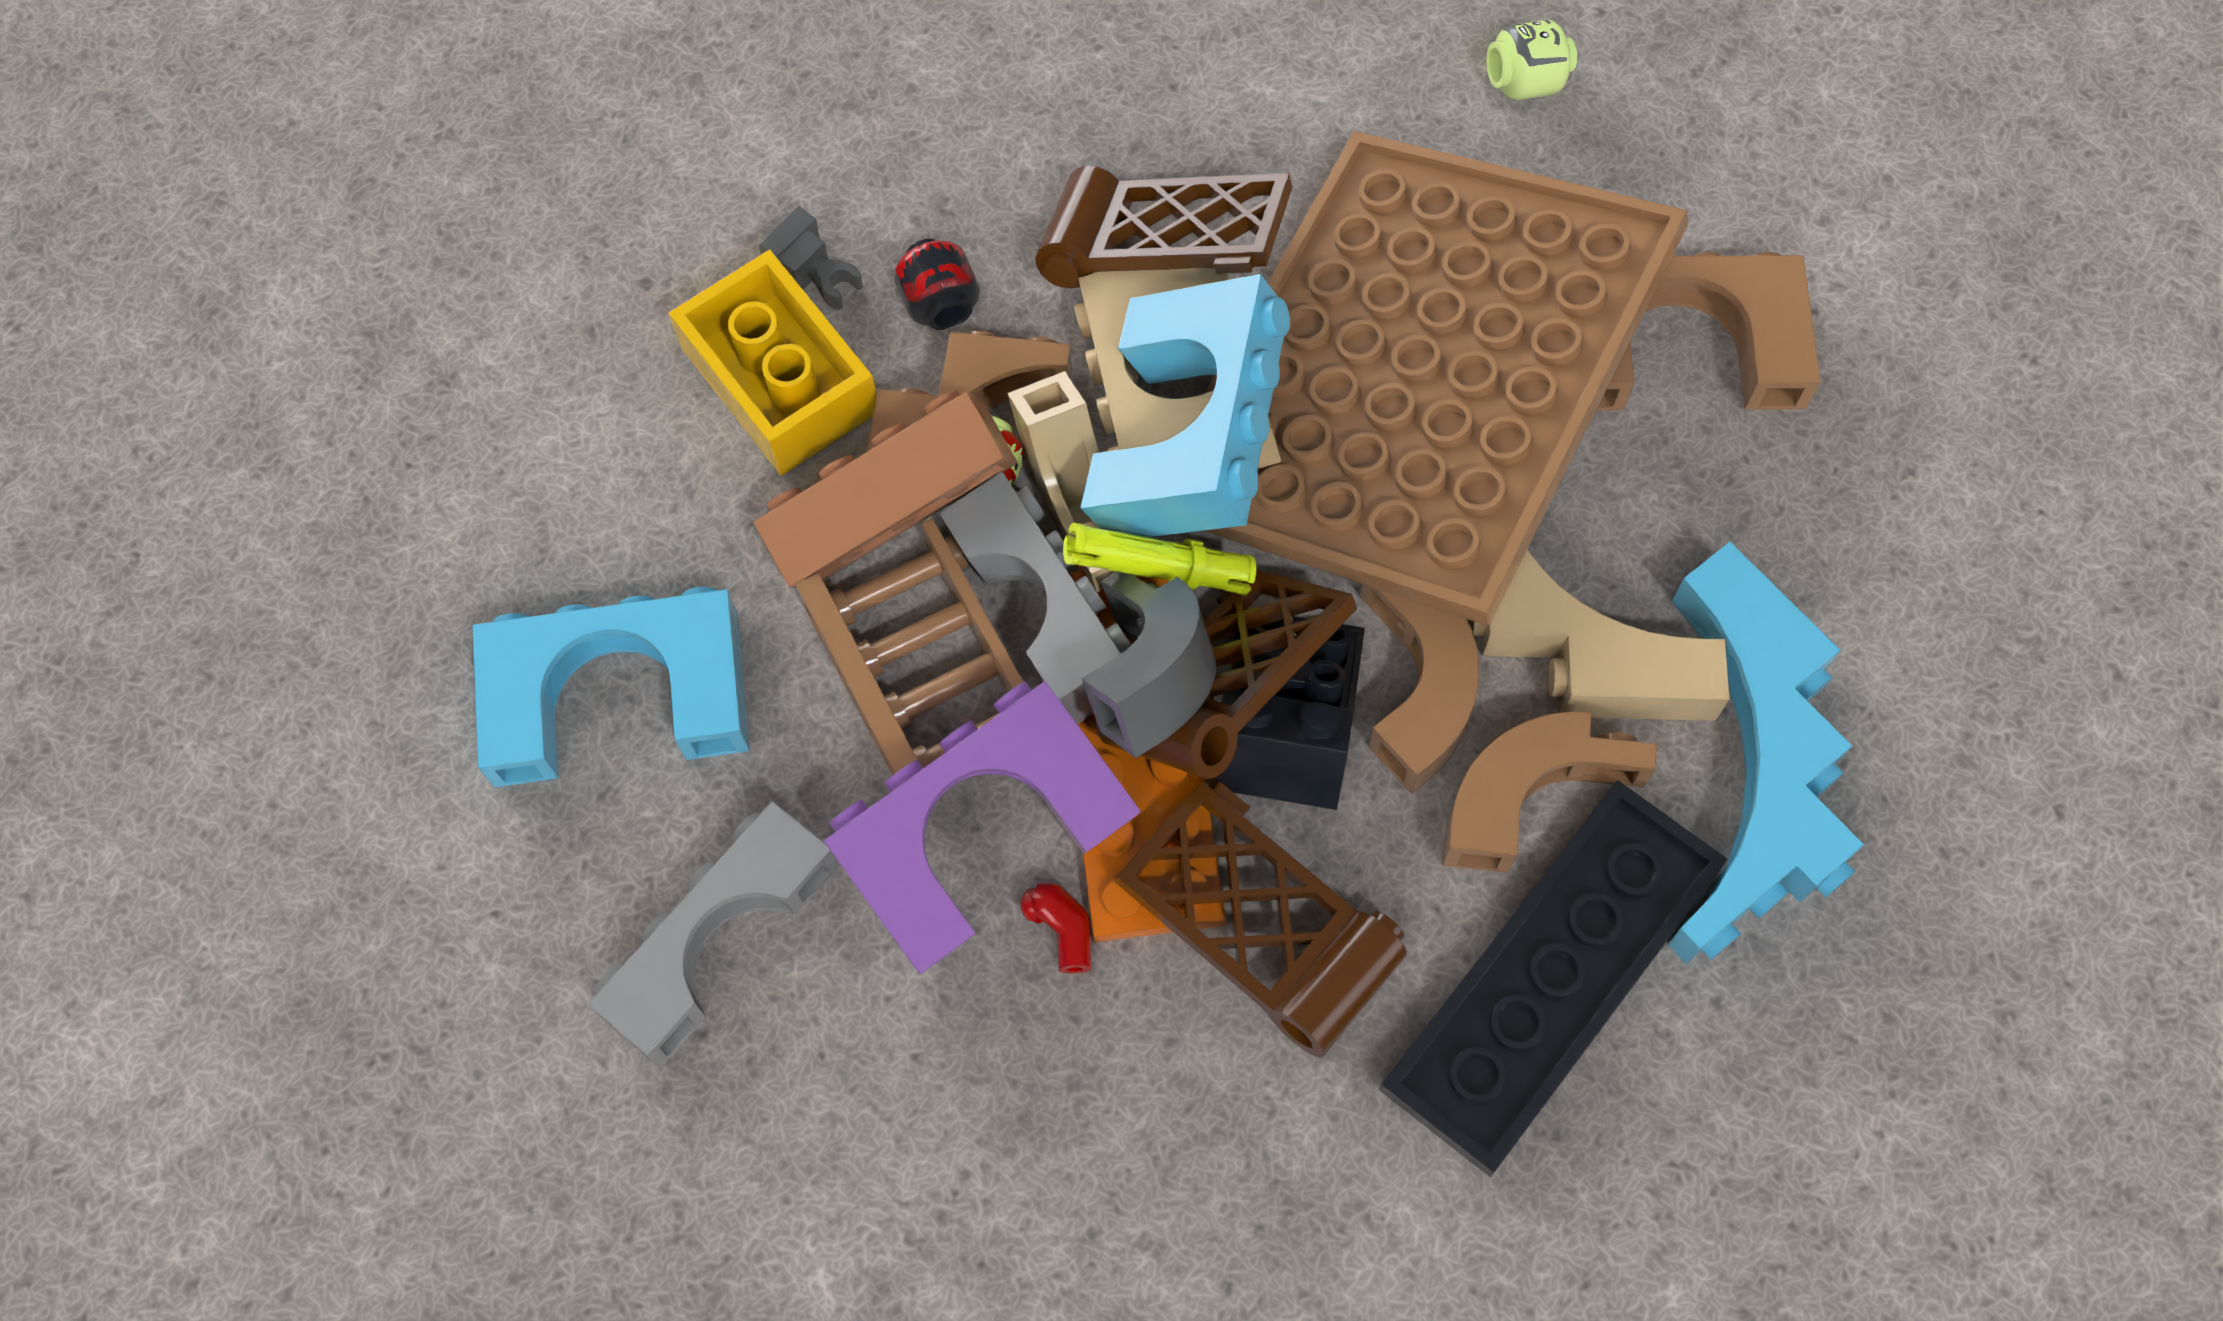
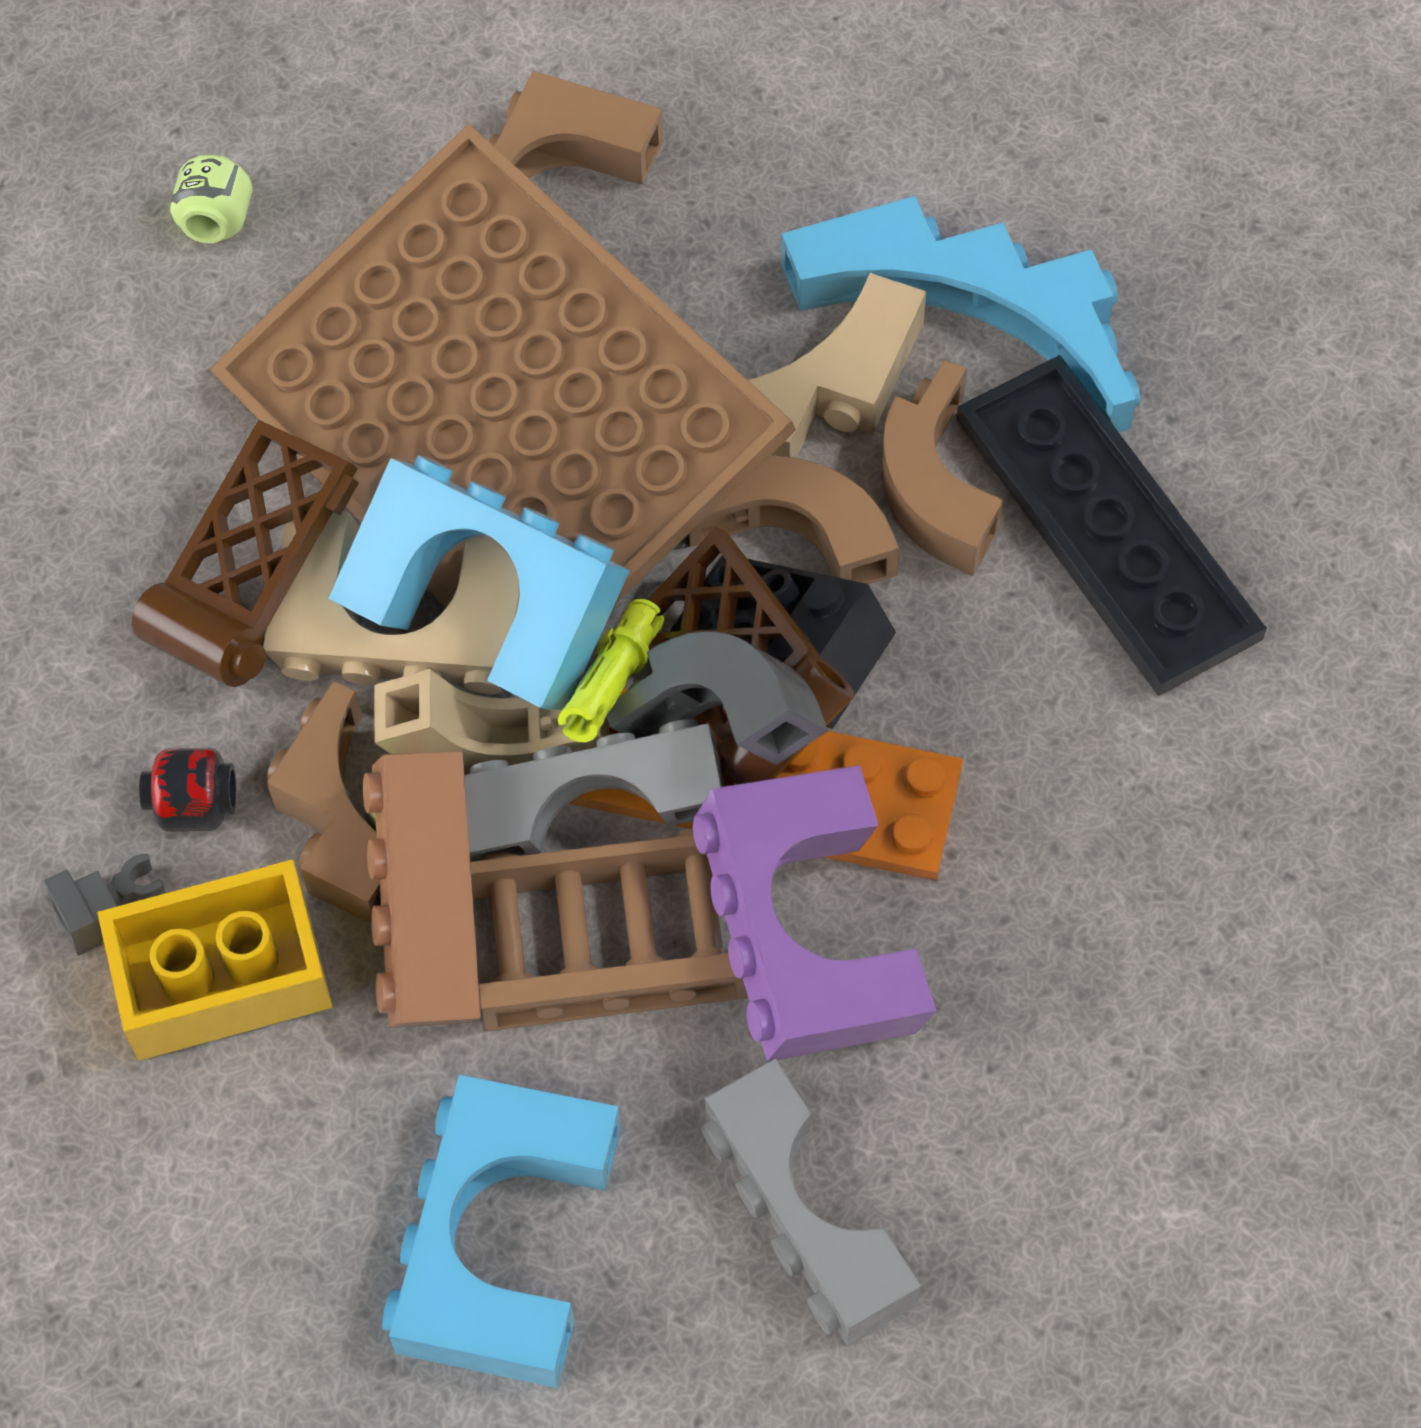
camera: 70 degrees left, 5 degrees down
(1067, 918) = (913, 889): red arm -> none
(1334, 972) = (1050, 695): reddish brown piece -> none

